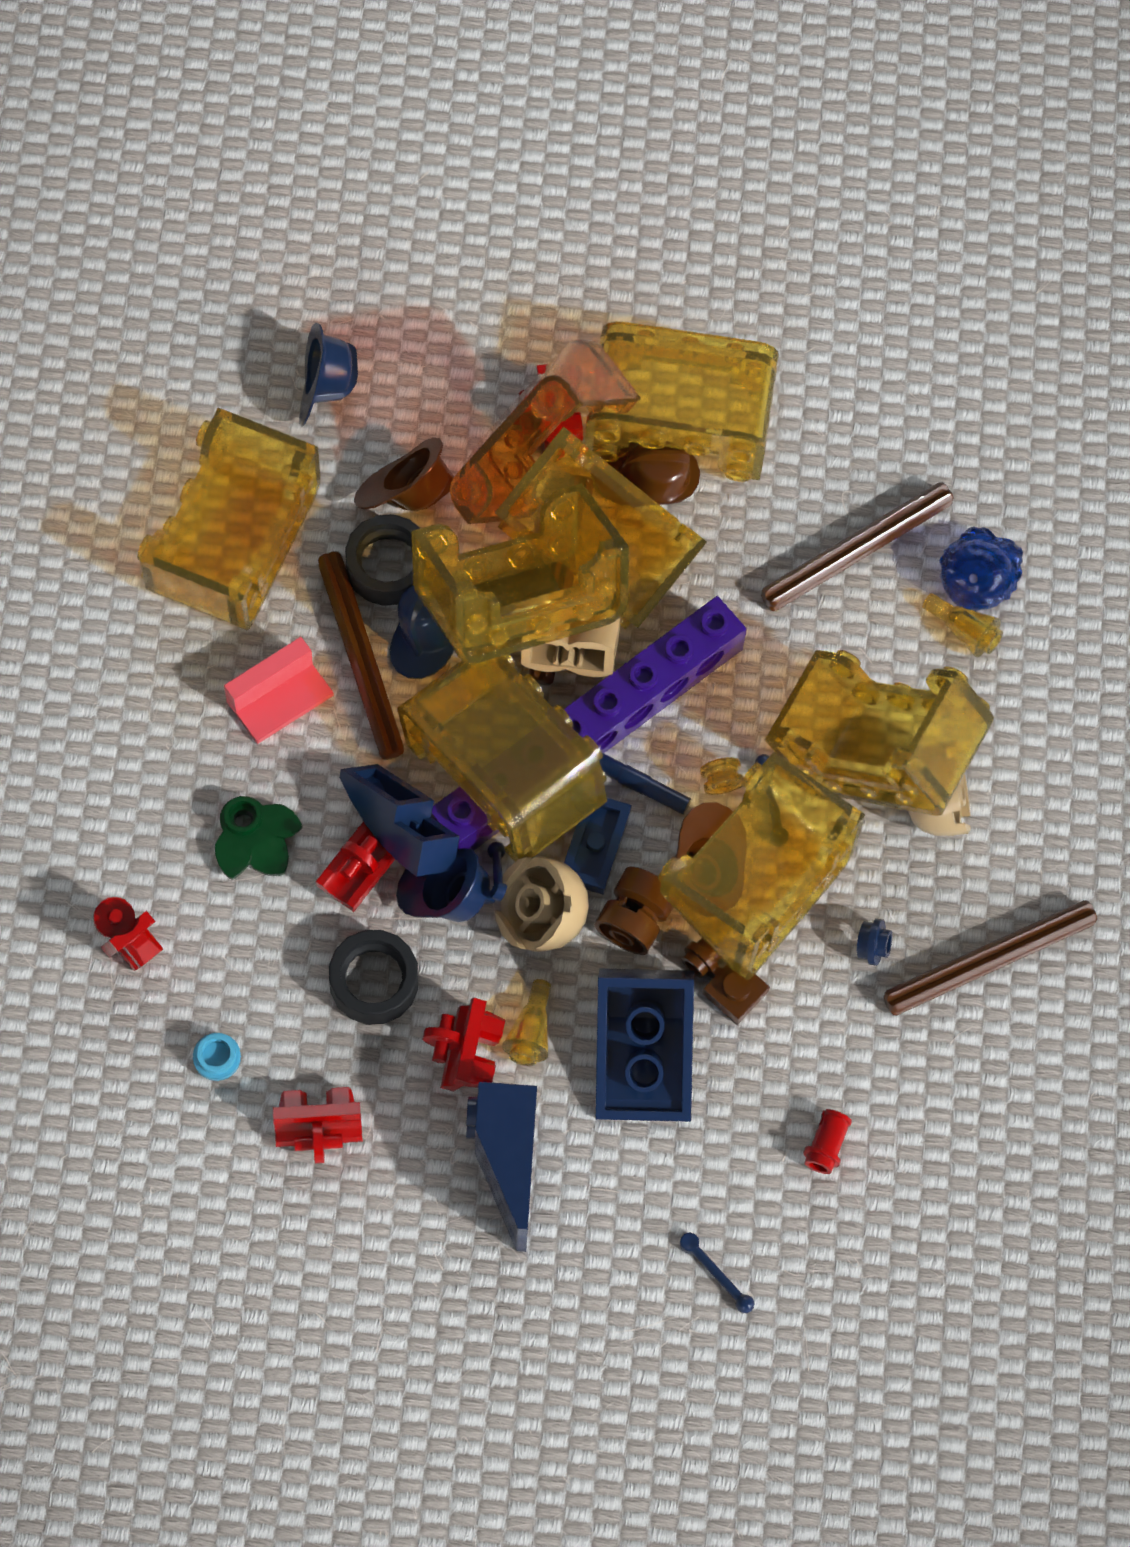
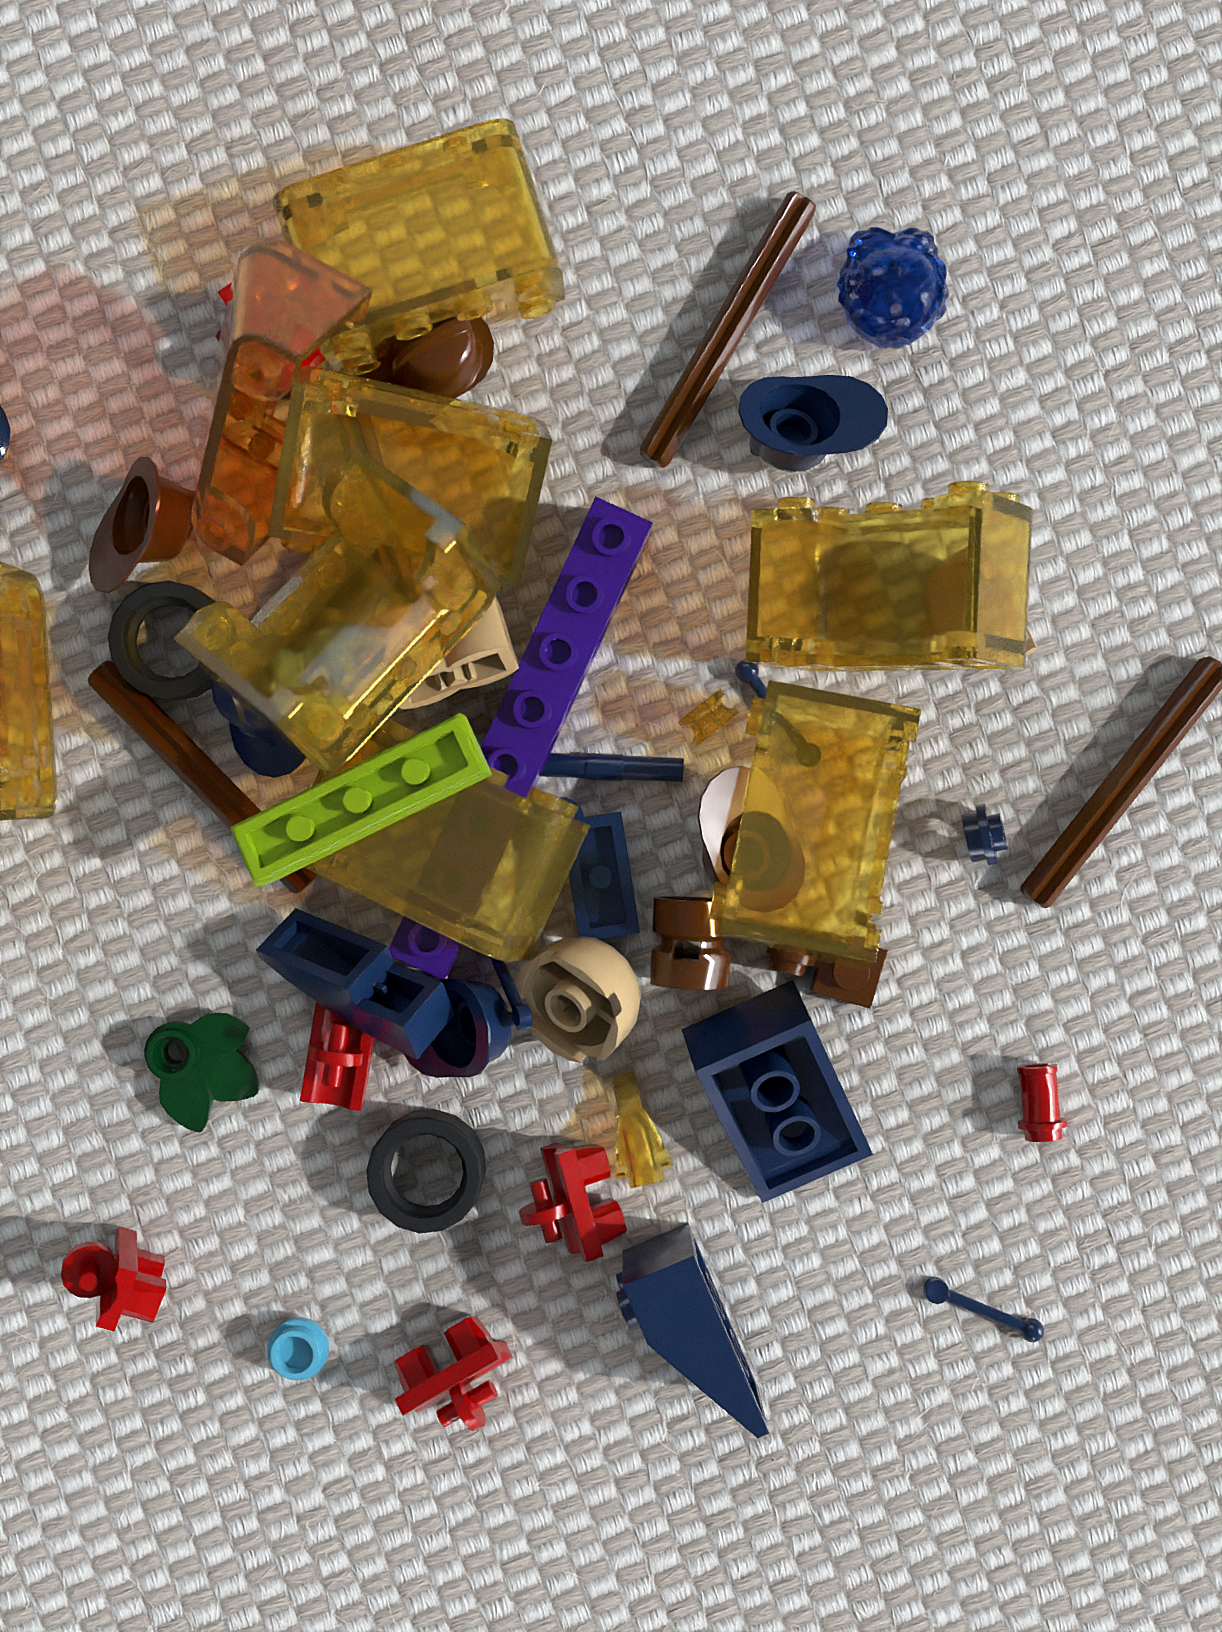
camera: 25 degrees left, 20 degrees up
(277, 691) = (130, 874): coral panel -> none
(470, 690) = (361, 800): none -> lime tile
(881, 621) = (808, 417): none -> dark blue piece
(974, 629) = (914, 370): clear yellow cone -> none

